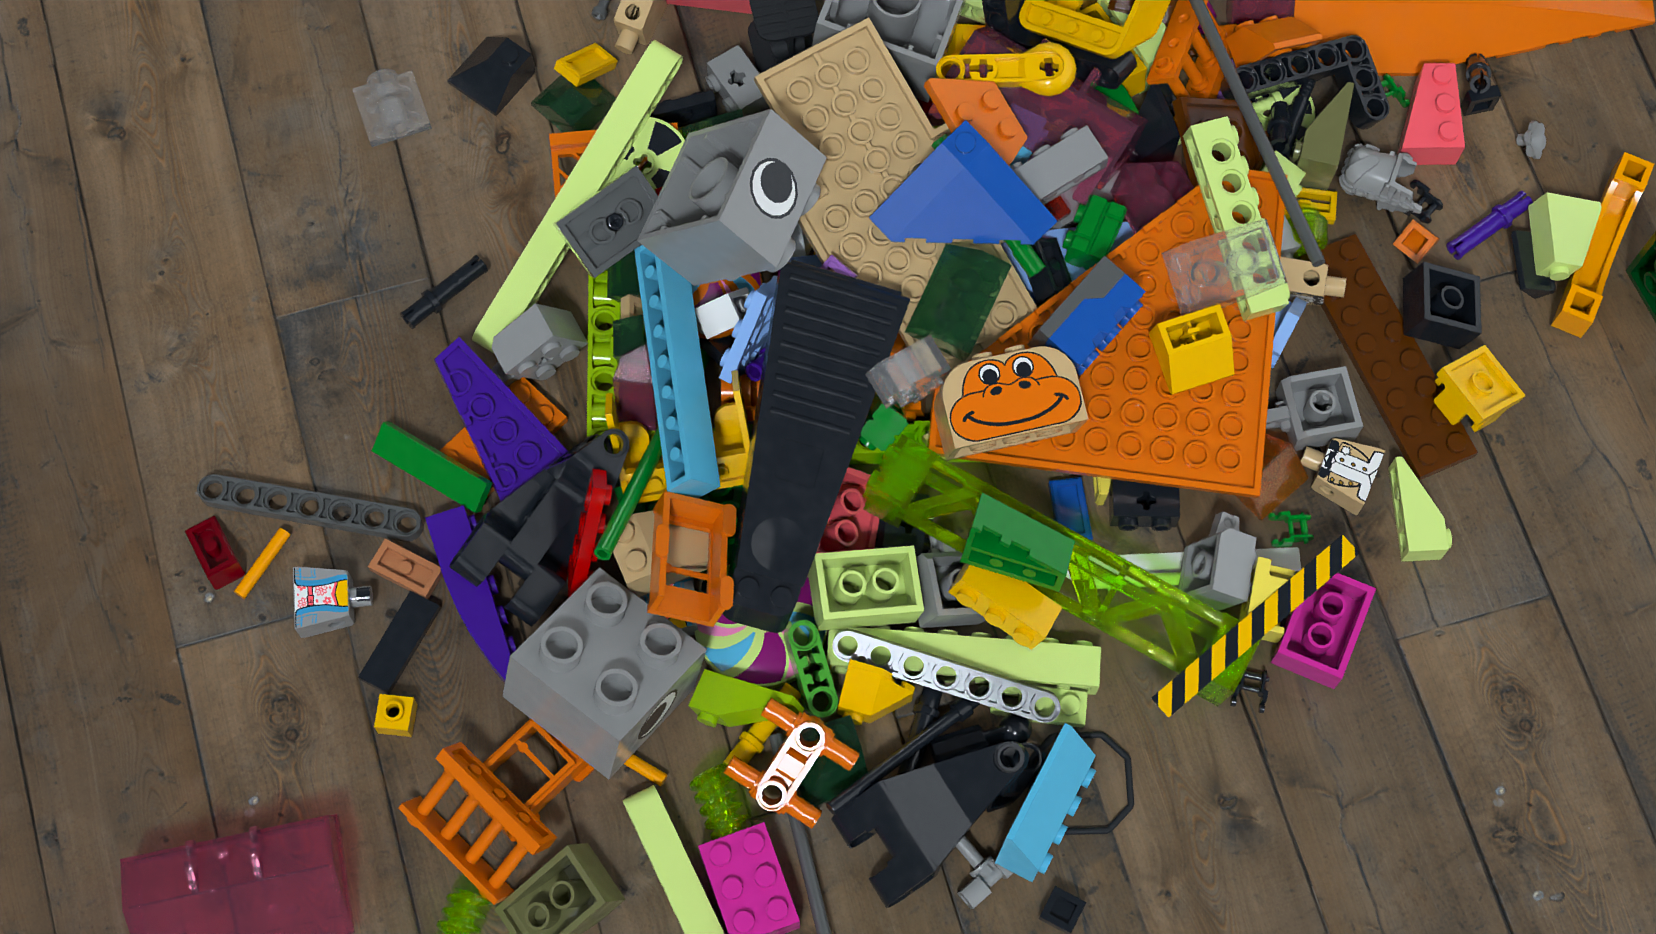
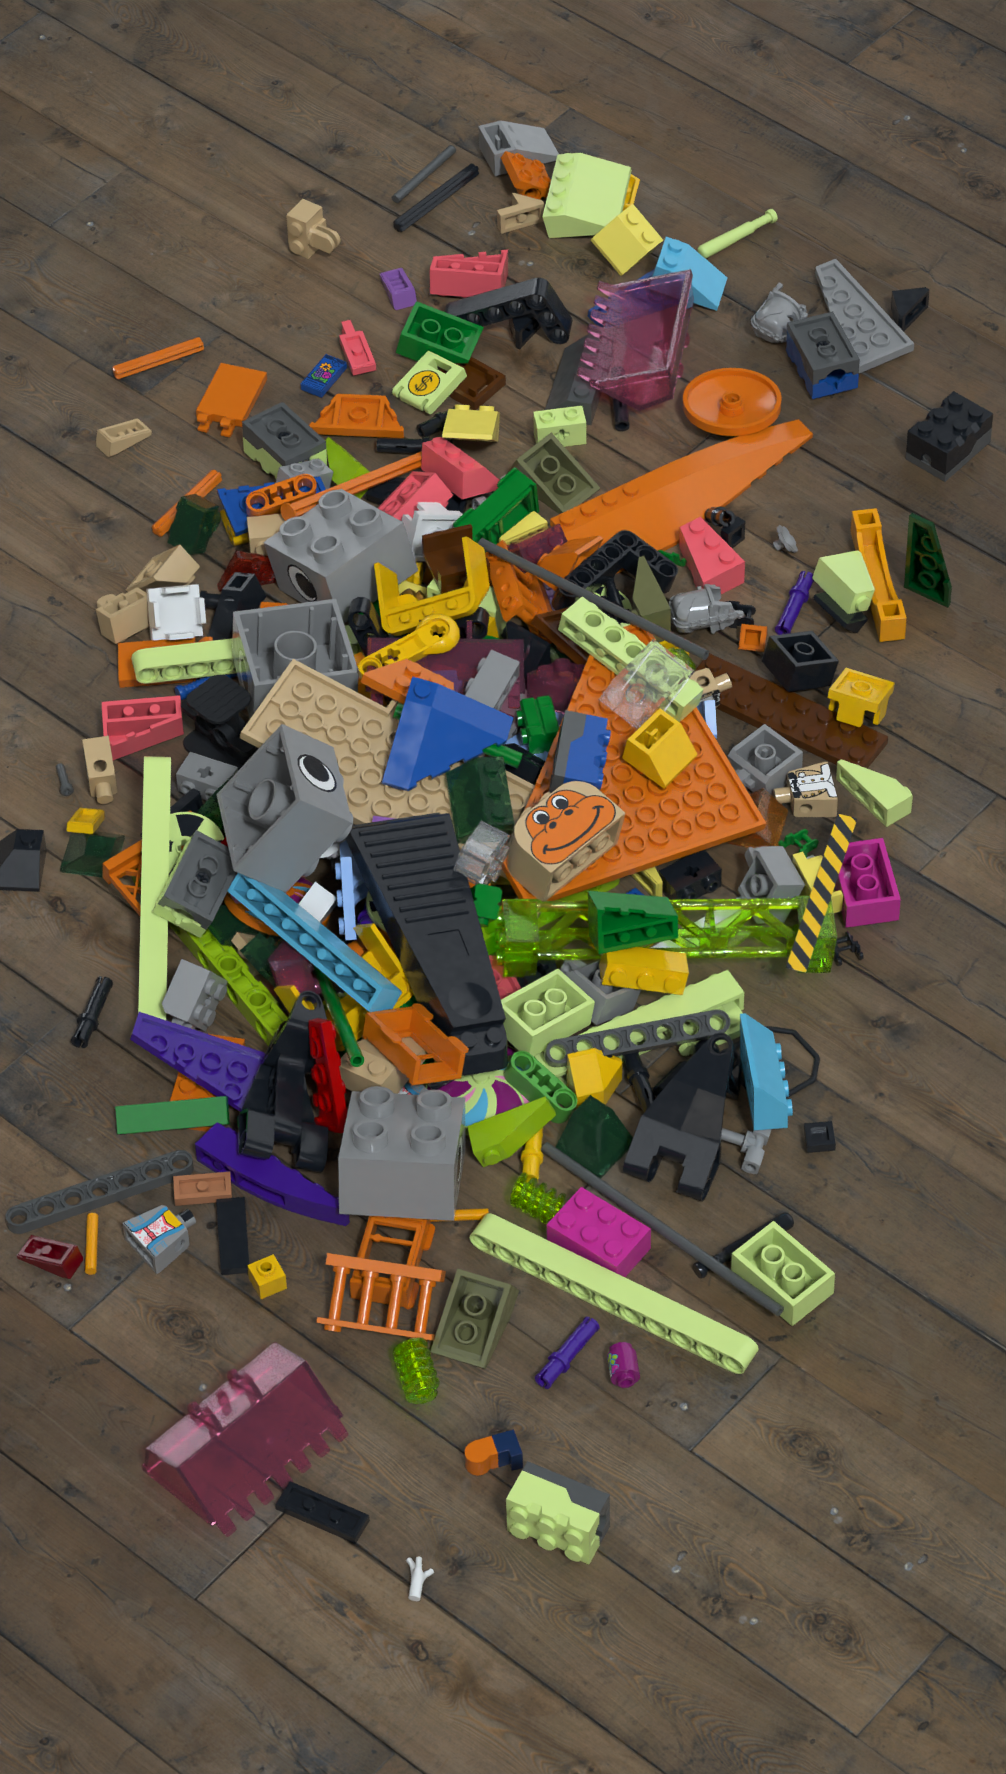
camera: 30 degrees left, 20 degrees down
(791, 763) = (573, 1141): orange piece -> none
(958, 711) = (660, 1061): black bar -> none

